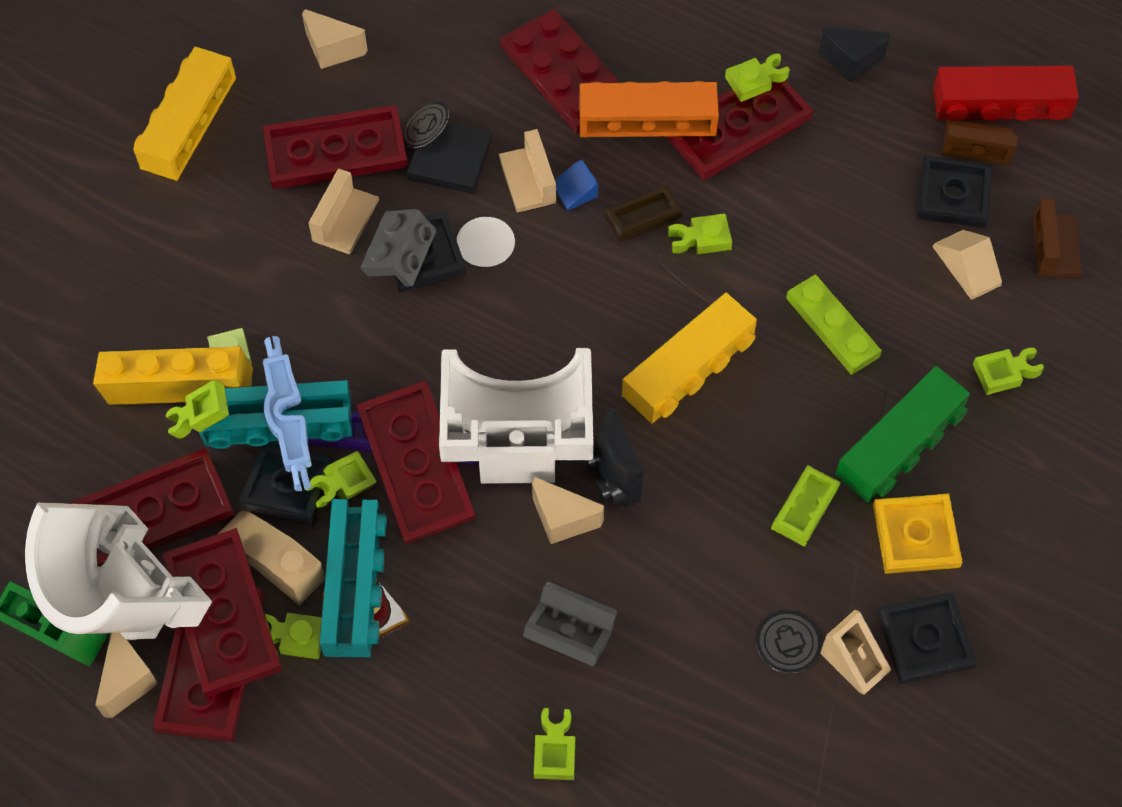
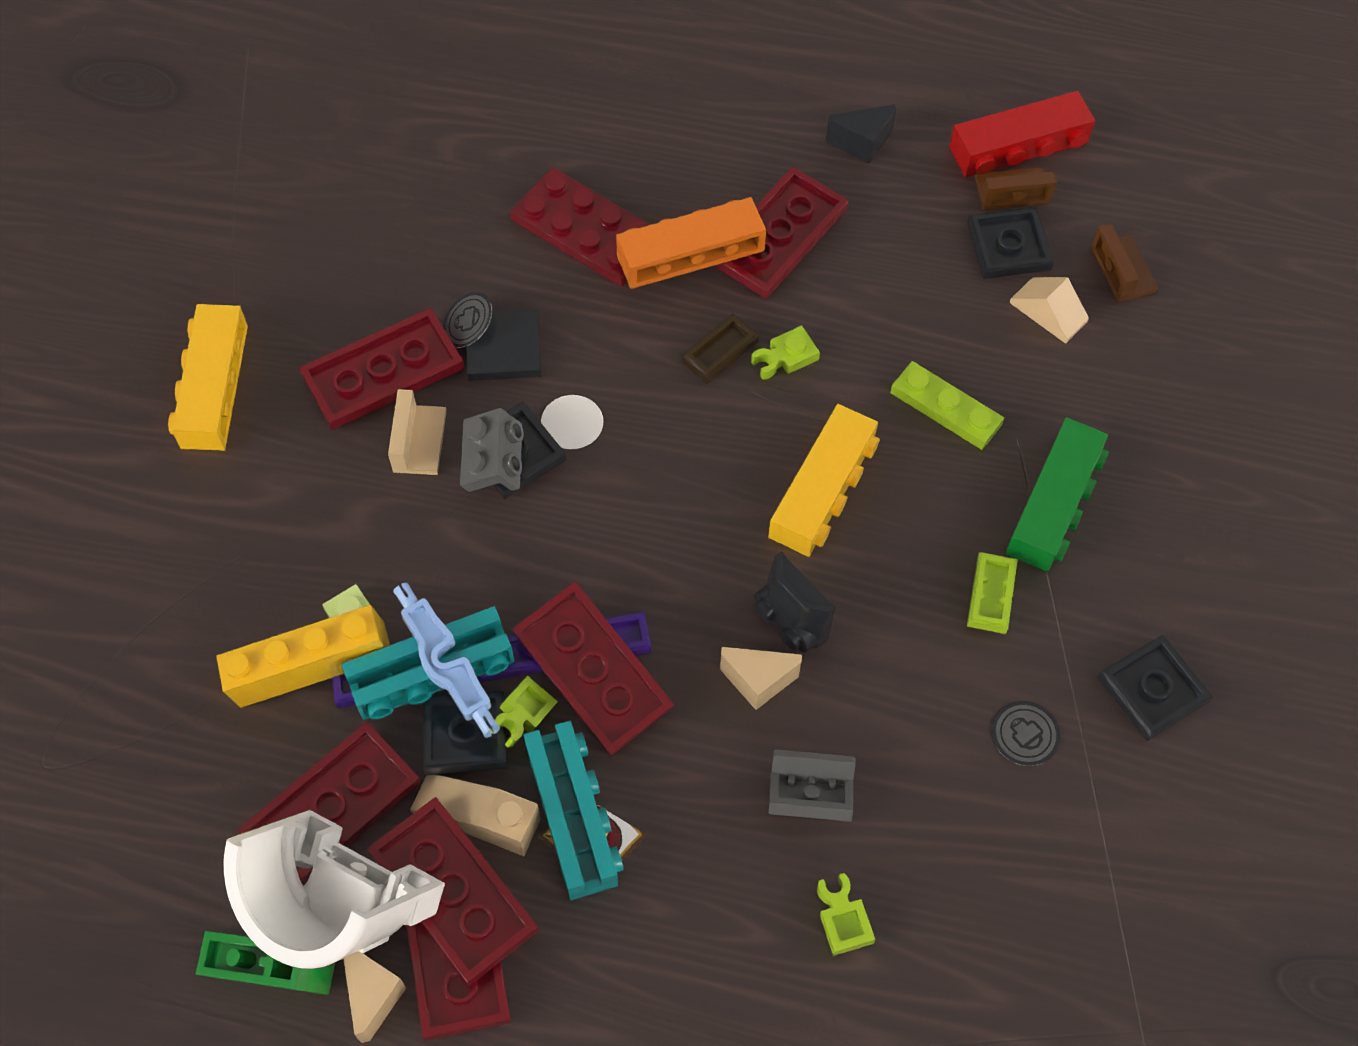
camera: 20 degrees left, 0 degrees up
(202, 410) = (356, 683): lime plate -> none
(298, 635) = (538, 886): lime plate -> none
(332, 39) = (337, 258): tan slope -> none
(516, 425) = (689, 597): white piece -> none
(529, 174) = (592, 340): tan panel -> none
(576, 186) = (643, 339): blue slope -> none
(754, 79) = (780, 184): lime plate -> none
(855, 653) = (1098, 724): tan slope -> none
(917, 533) = (1106, 587): yellow tile -> none
(1002, 371) = (1126, 404): lime plate -> none

